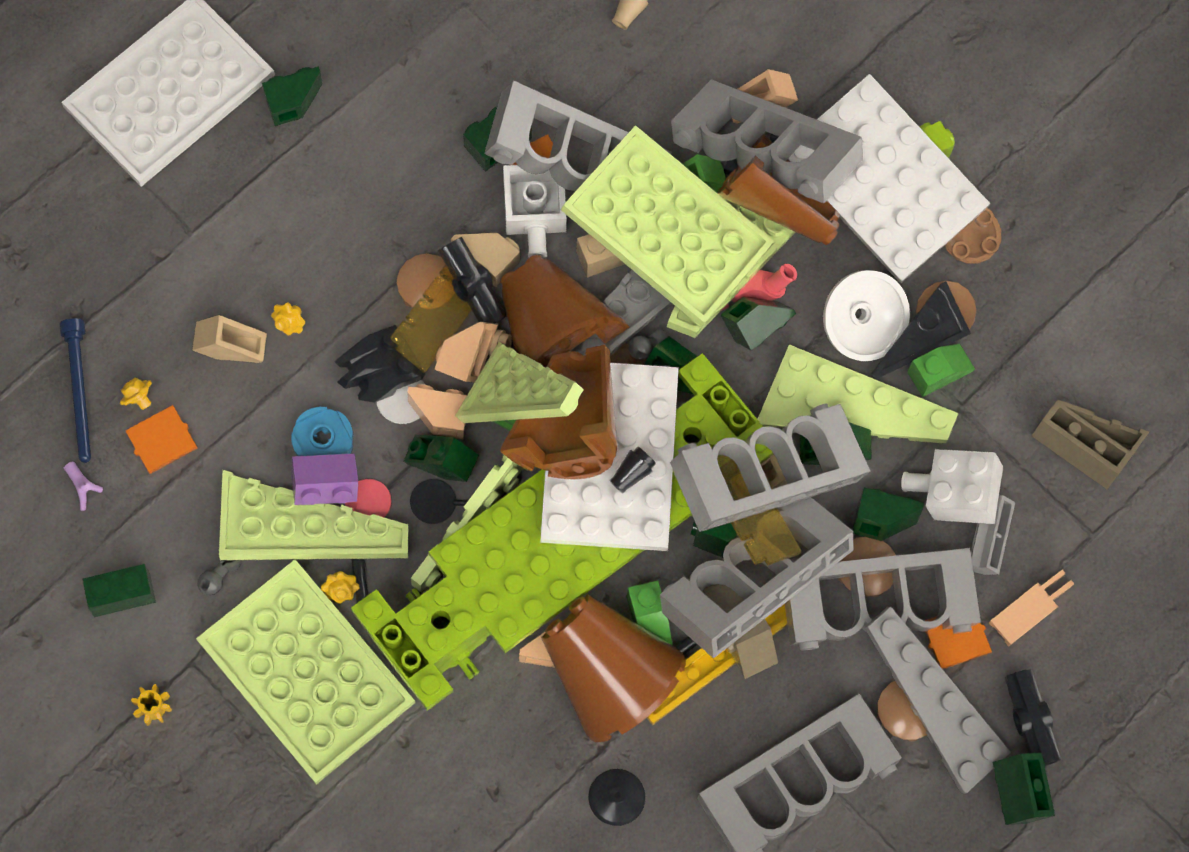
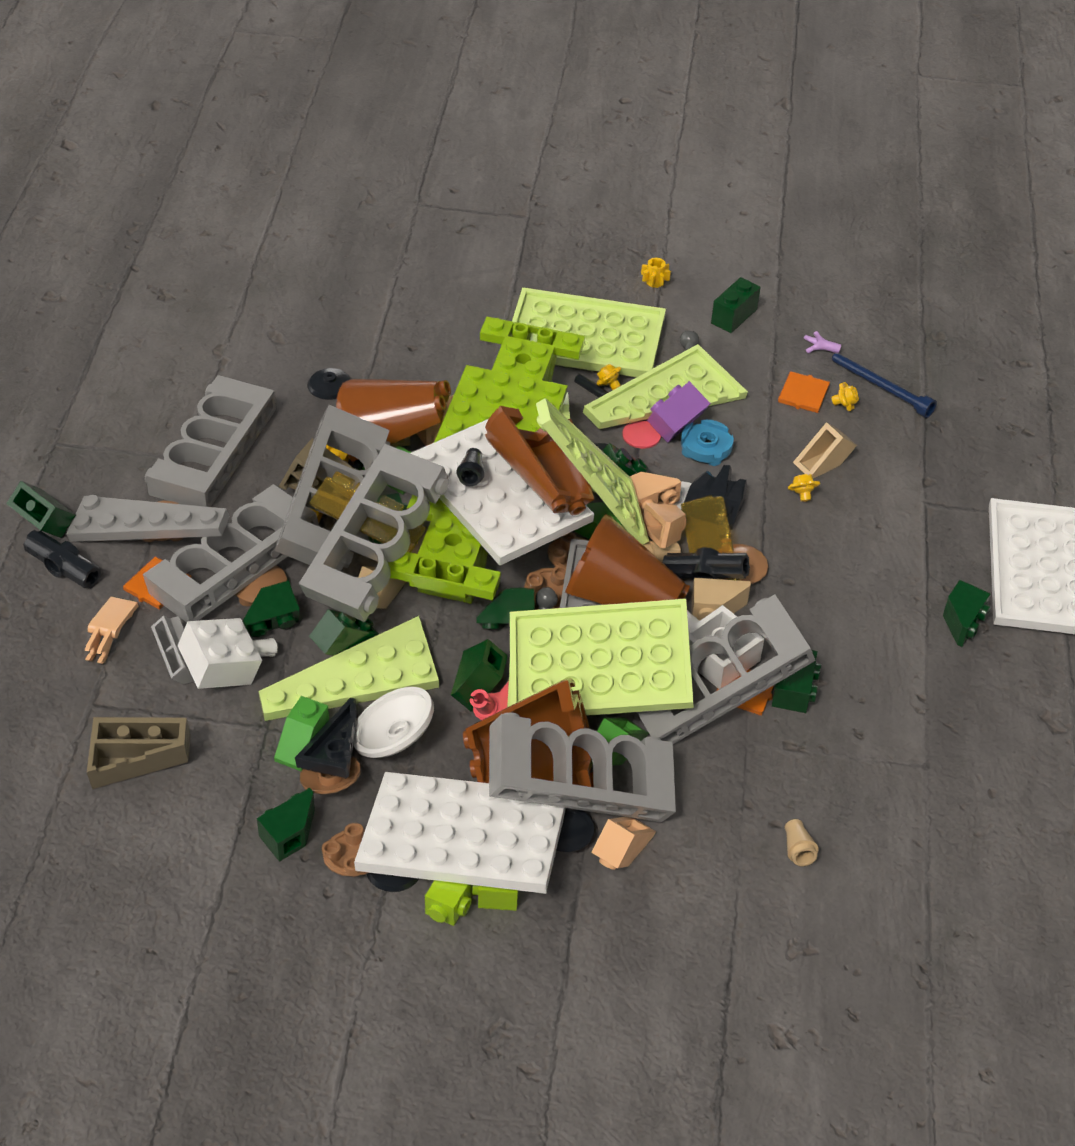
camera: 145 degrees right, 25 degrees down
(1010, 288) = (287, 825): none -> dark green slope

